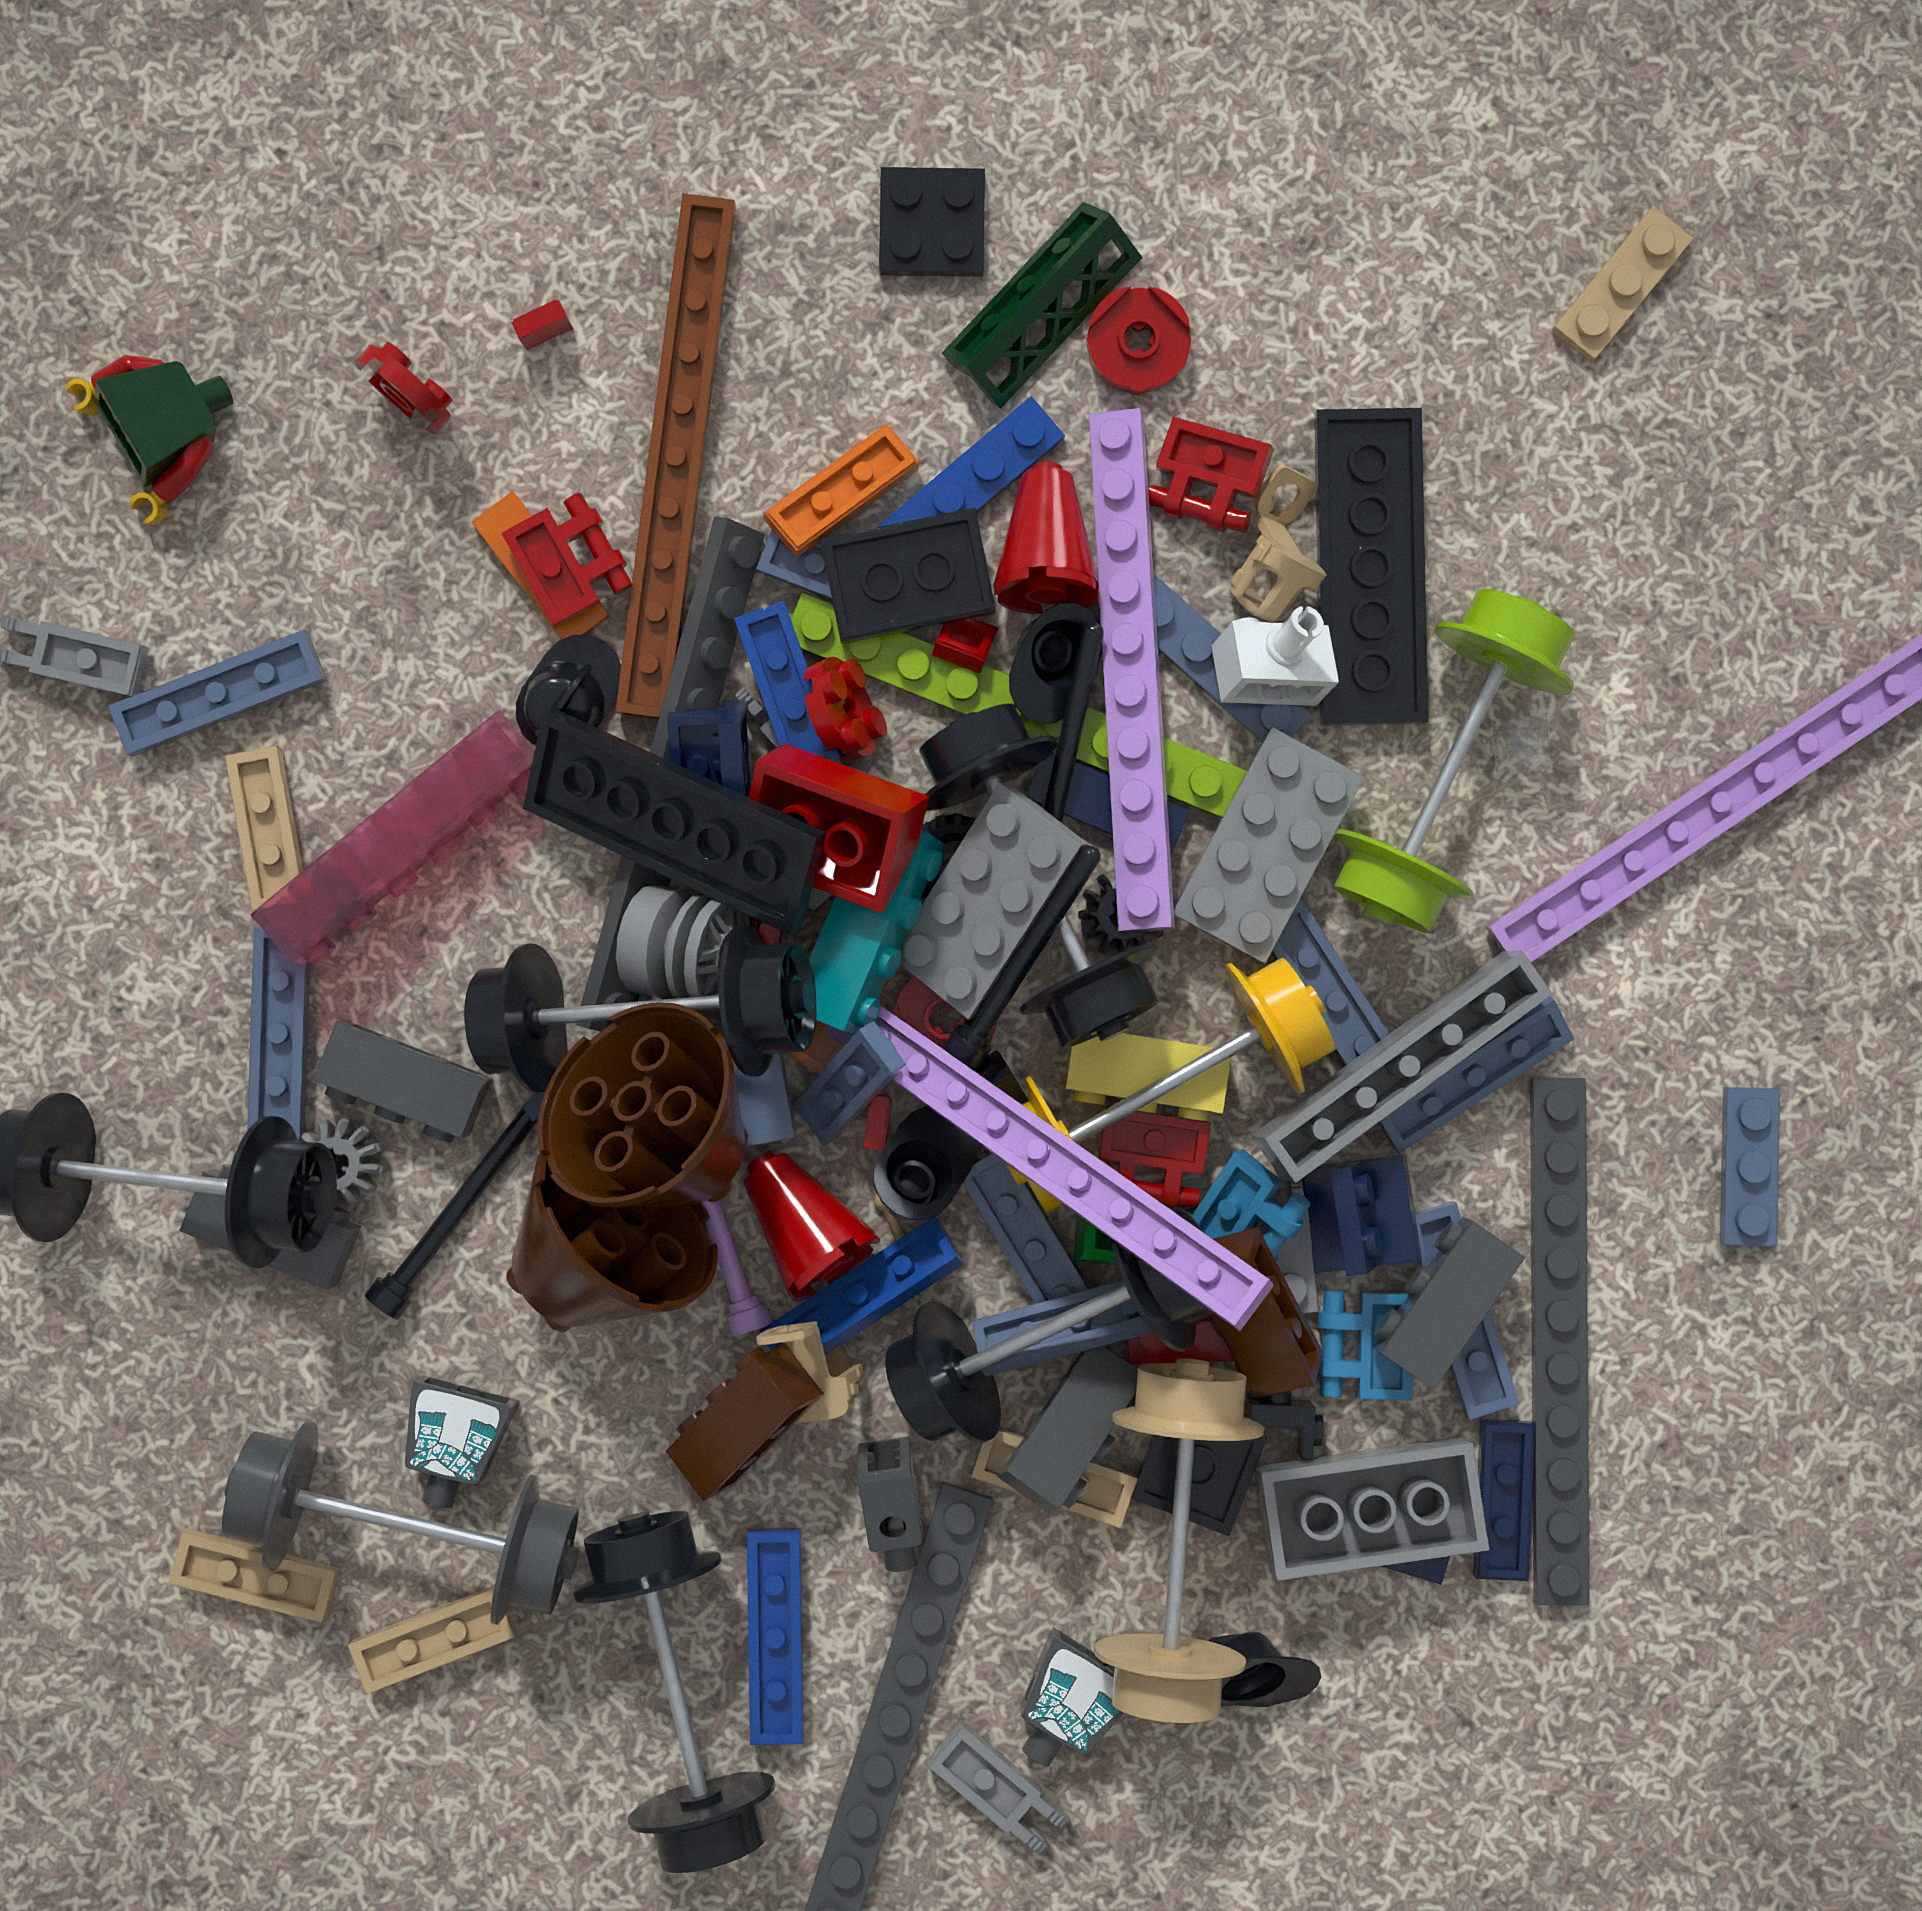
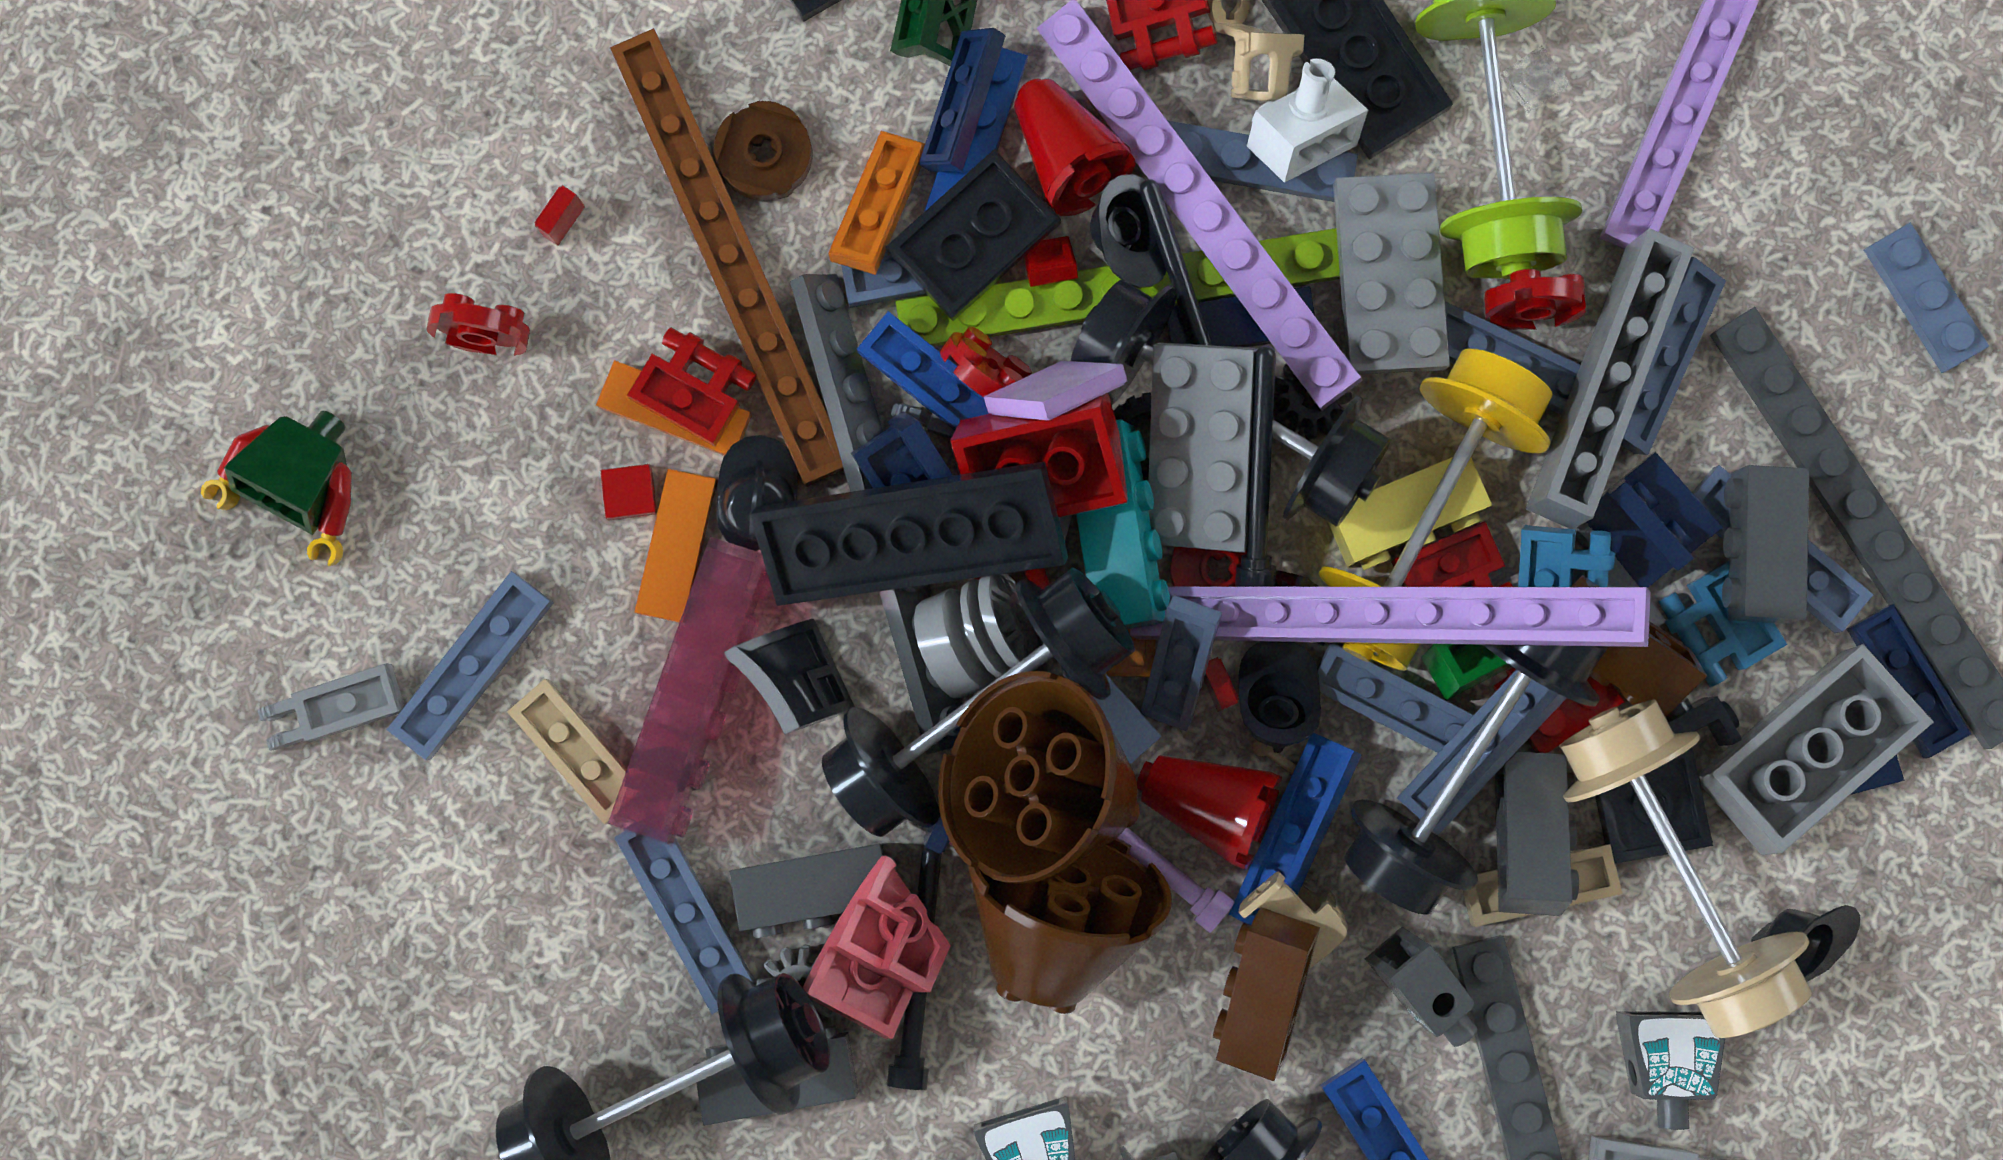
camera: 30 degrees left, 5 degrees down
(423, 1175) = (878, 954): none -> coral slope
(454, 620) = (628, 492): none -> red tile
(468, 695) = (675, 545): none -> orange tile
(499, 881) = (794, 675): none -> black plate
(769, 347) = (749, 128): none -> reddish brown plate
(881, 771) = (1055, 390): none -> lavender tile
(976, 442) = (962, 100): none -> dark blue tile
(1375, 948) = (1535, 298): none -> red plate

